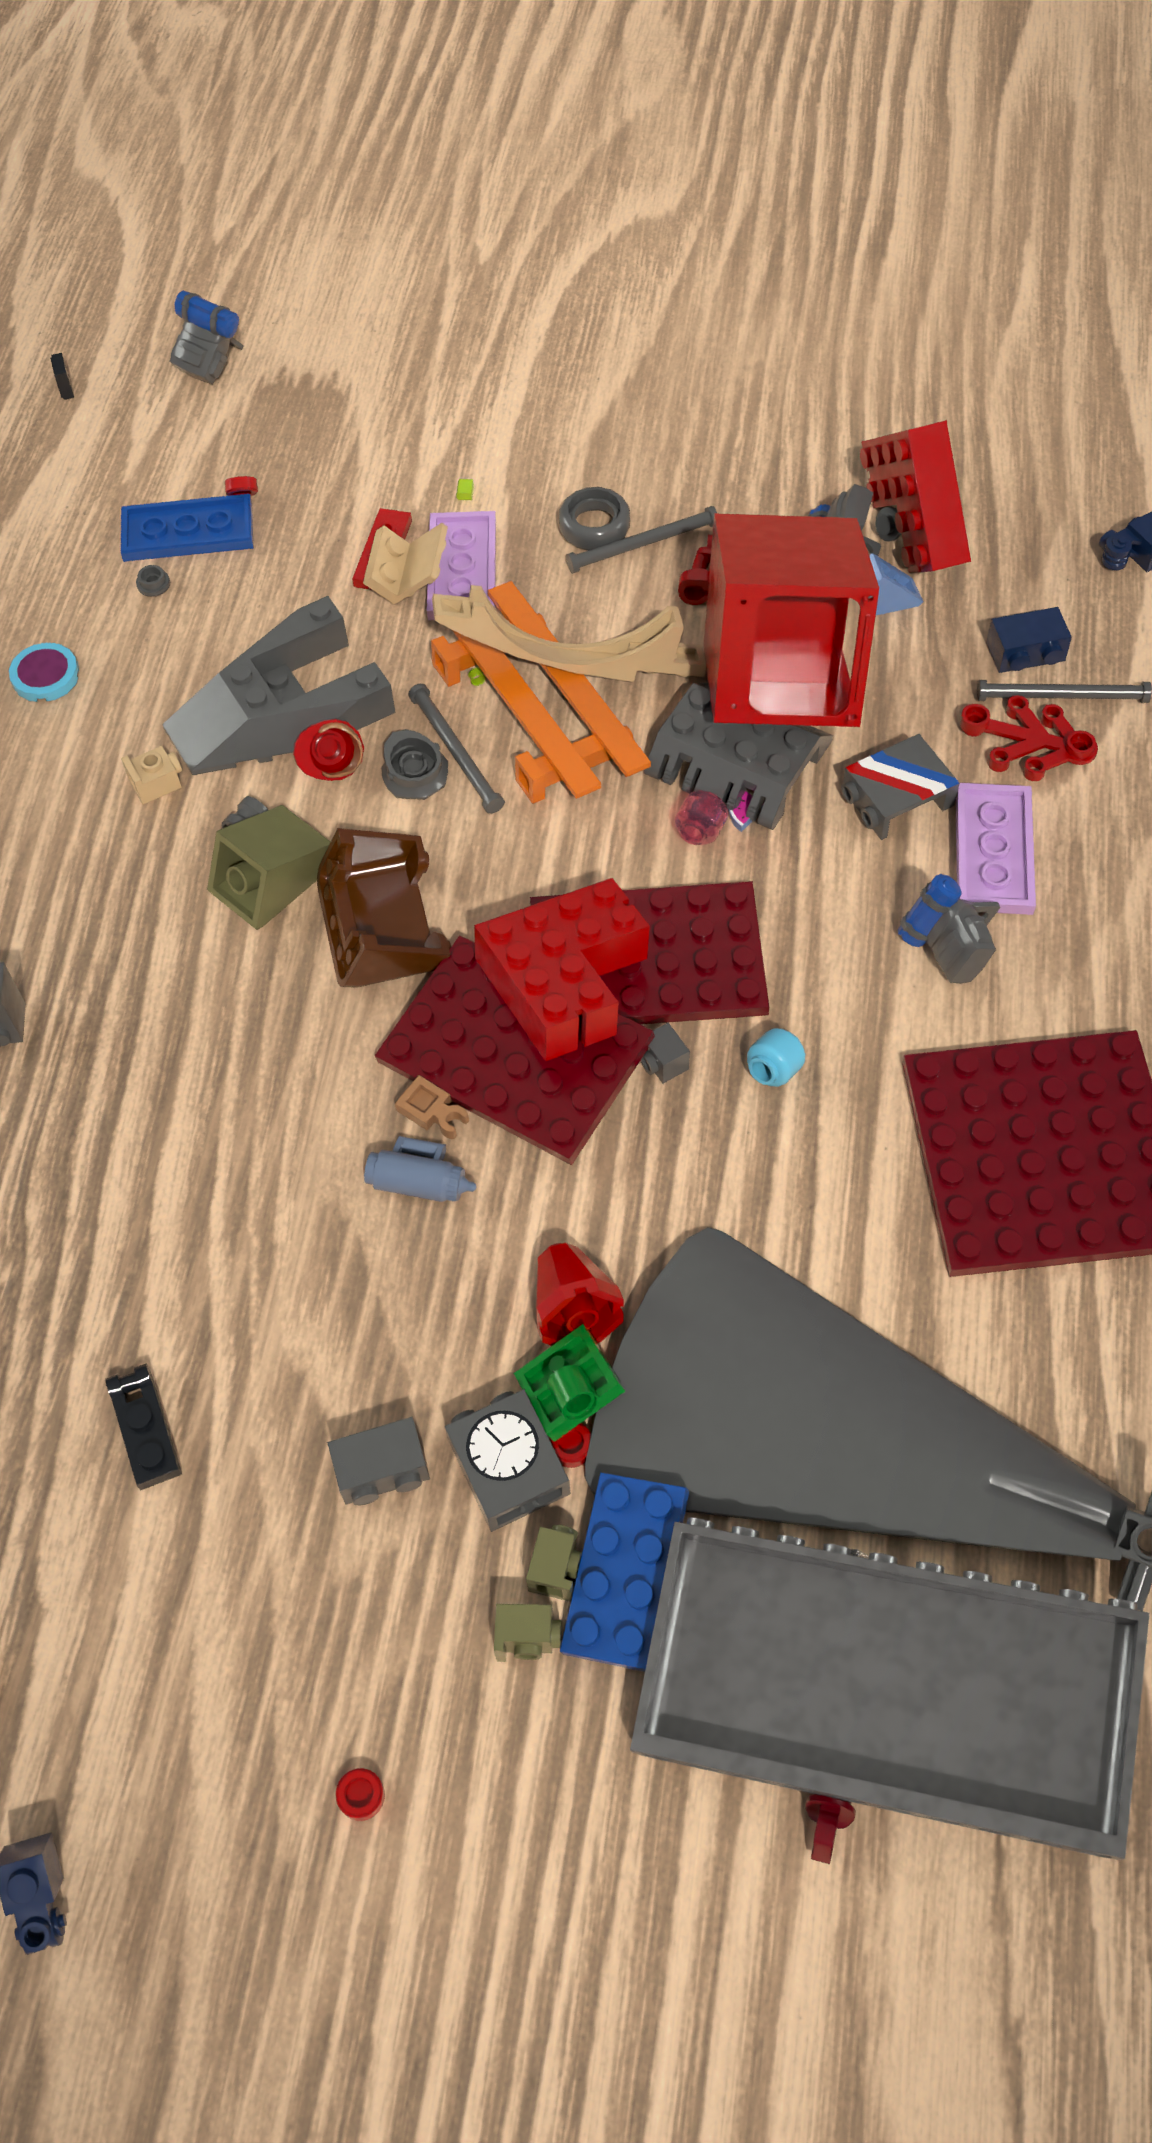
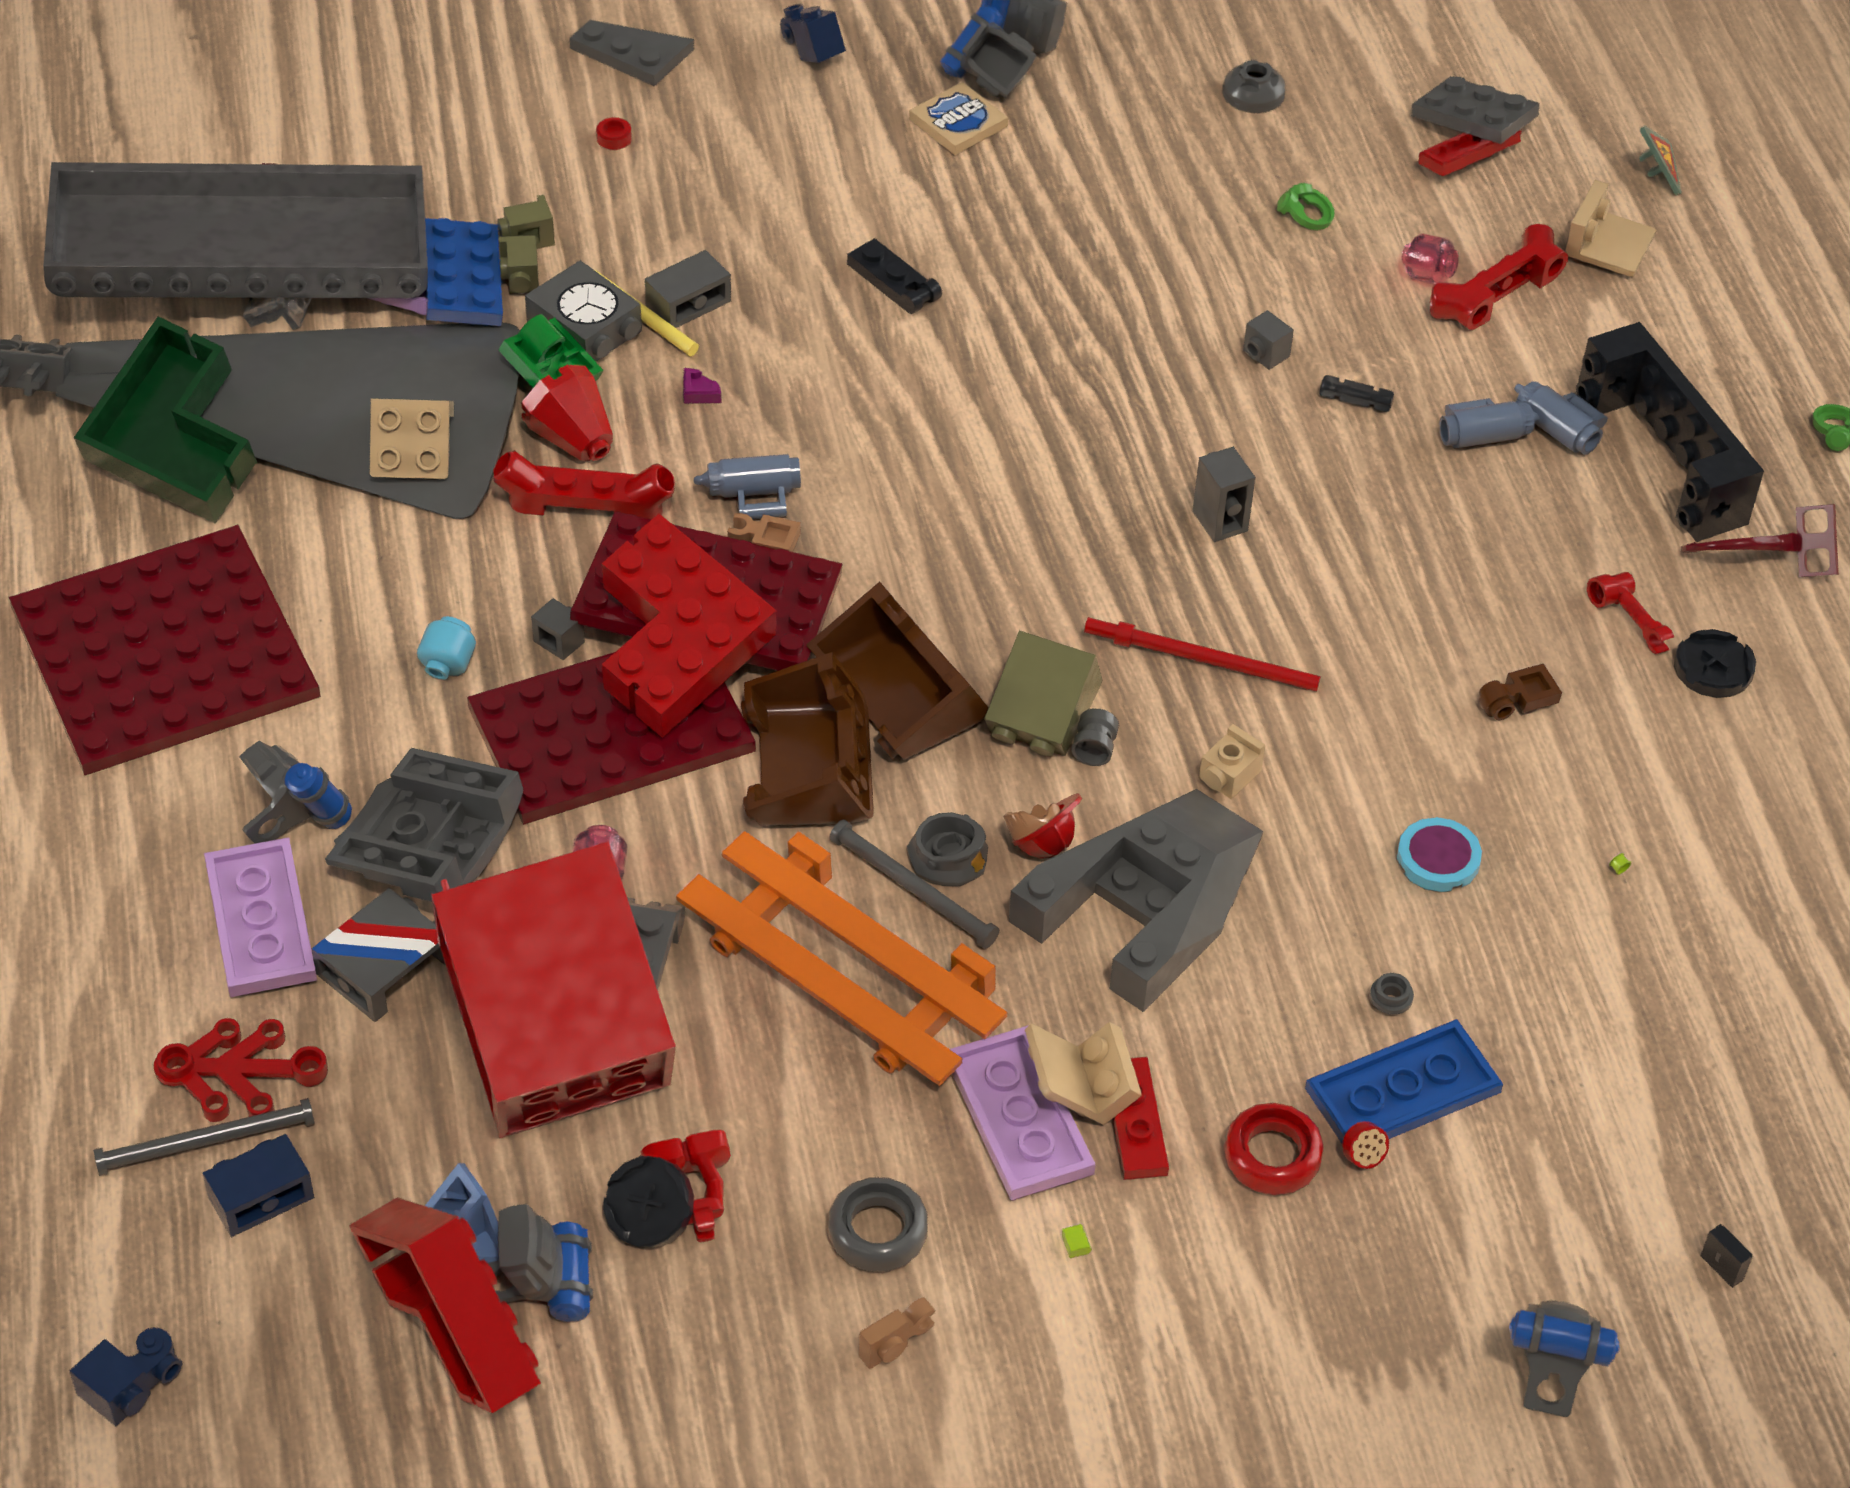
camera: 155 degrees right, 10 degrees down
(160, 917) = (1125, 635): none -> red bar
(274, 1969) = (632, 50): none -> dark grey wing
(299, 483) = (1268, 1178): none -> red wheel
(420, 1327) = (699, 388): none -> magenta tile
(440, 1459) = (665, 329): none -> light yellow bar
(492, 855) = (810, 746): none -> reddish brown windscreen
(545, 1188) = (536, 486): none -> red plate
(617, 453) = (890, 1335): none -> medium nougat plate
(639, 540) = (726, 1276): dark grey bar -> none
(647, 649) = (759, 1013): tan slope -> none
(748, 1303) = (410, 438): none -> tan bracket
(846, 875) = (430, 824): none -> dark grey slope
(1029, 1376) = (153, 429): none -> dark green piece

